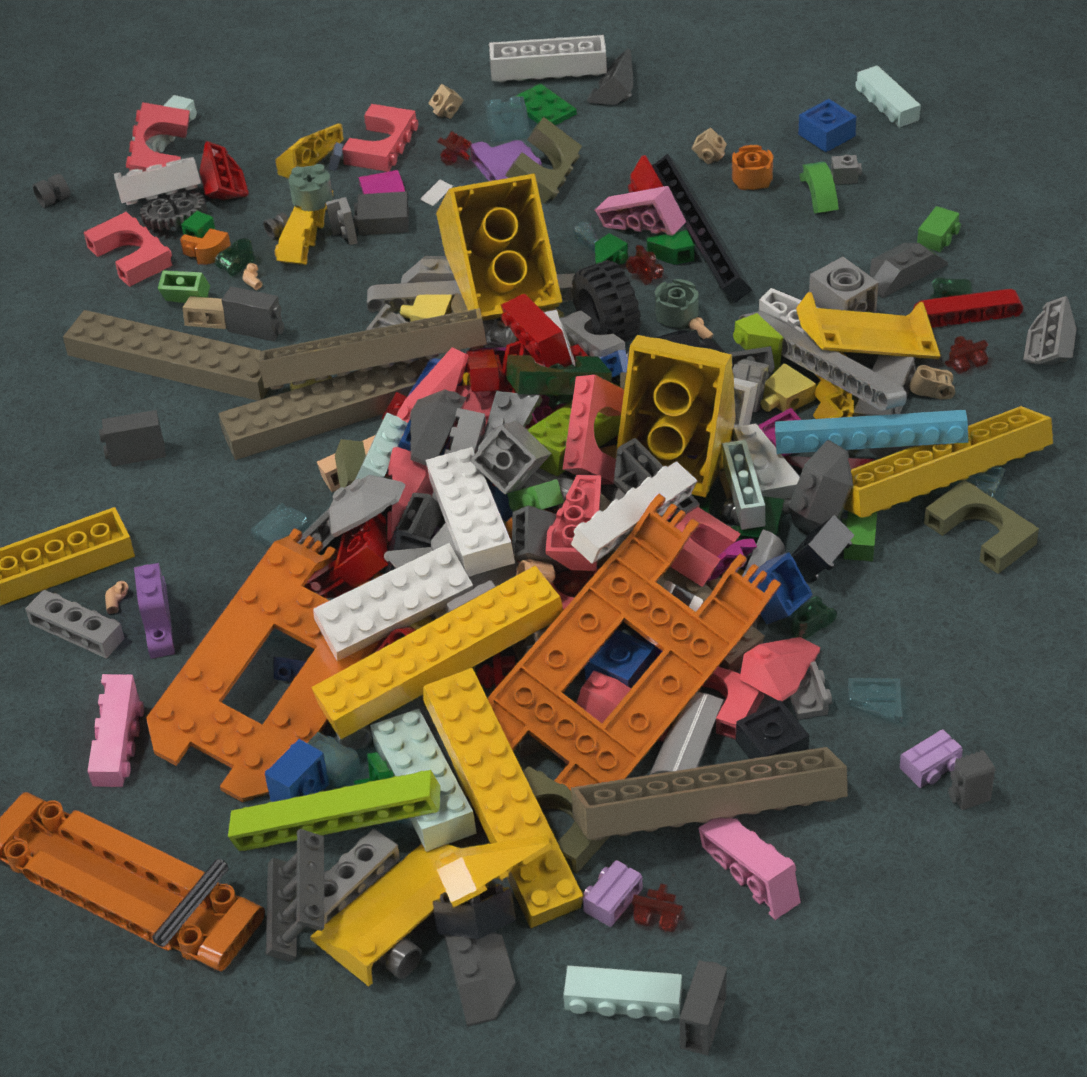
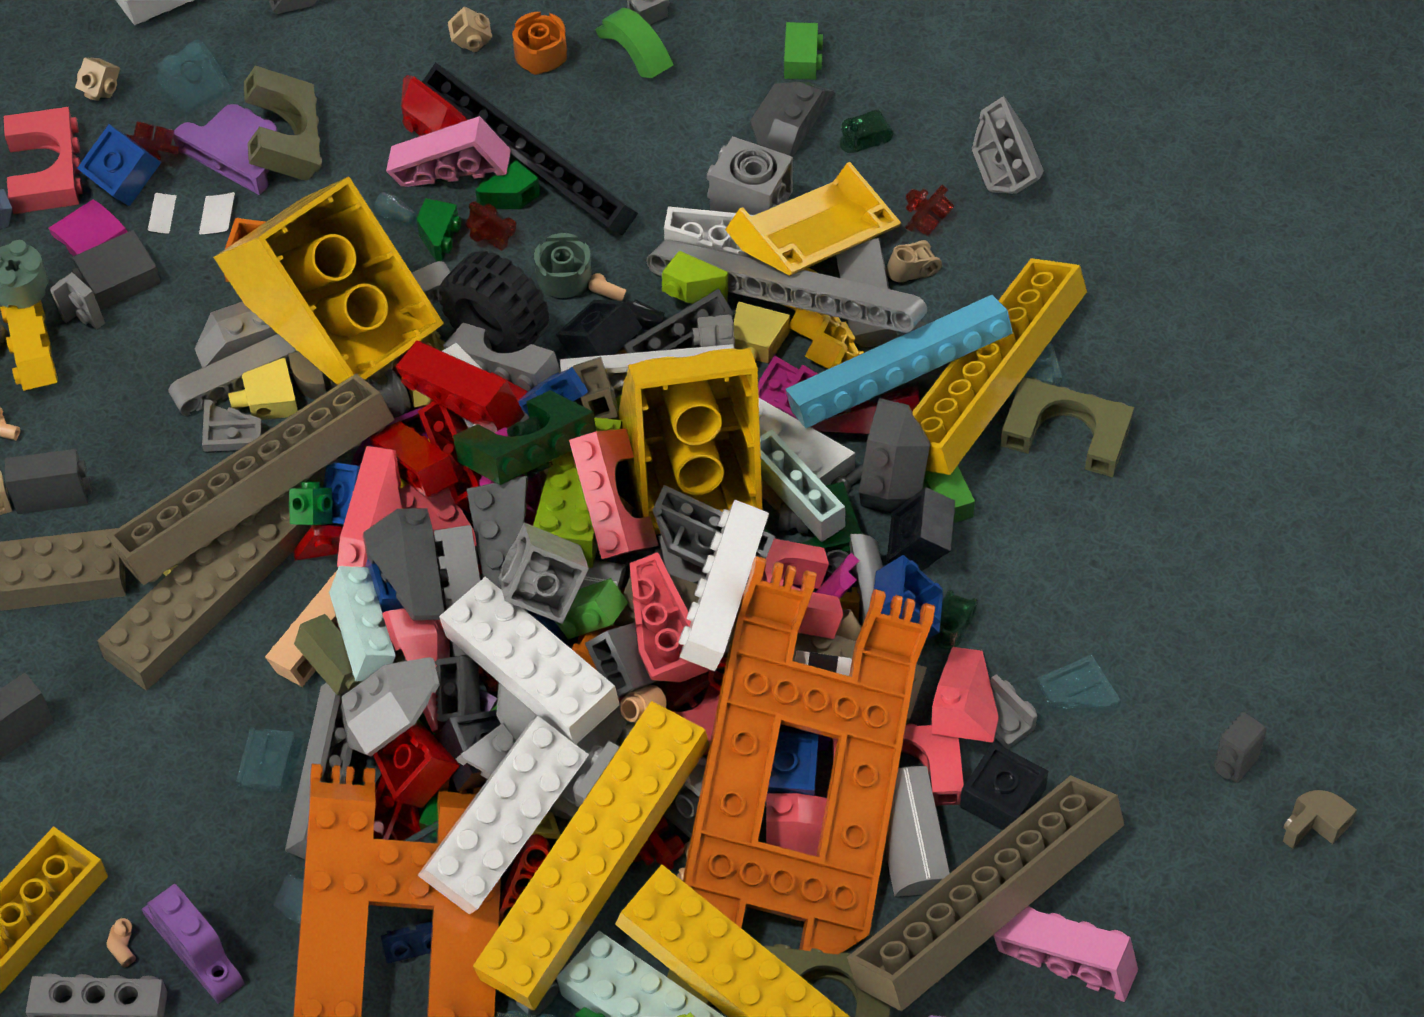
camera: 30 degrees left, 10 degrees up
(402, 378) = (310, 504): none -> green brick
(423, 152) = (119, 165): none -> blue container
(544, 103) = (228, 39): green plate -> none
(930, 758) = (1177, 737): lavender brick -> none
(972, 307) = (898, 143): red beam -> none
(1012, 852) = (1318, 811): none -> dark tan brick

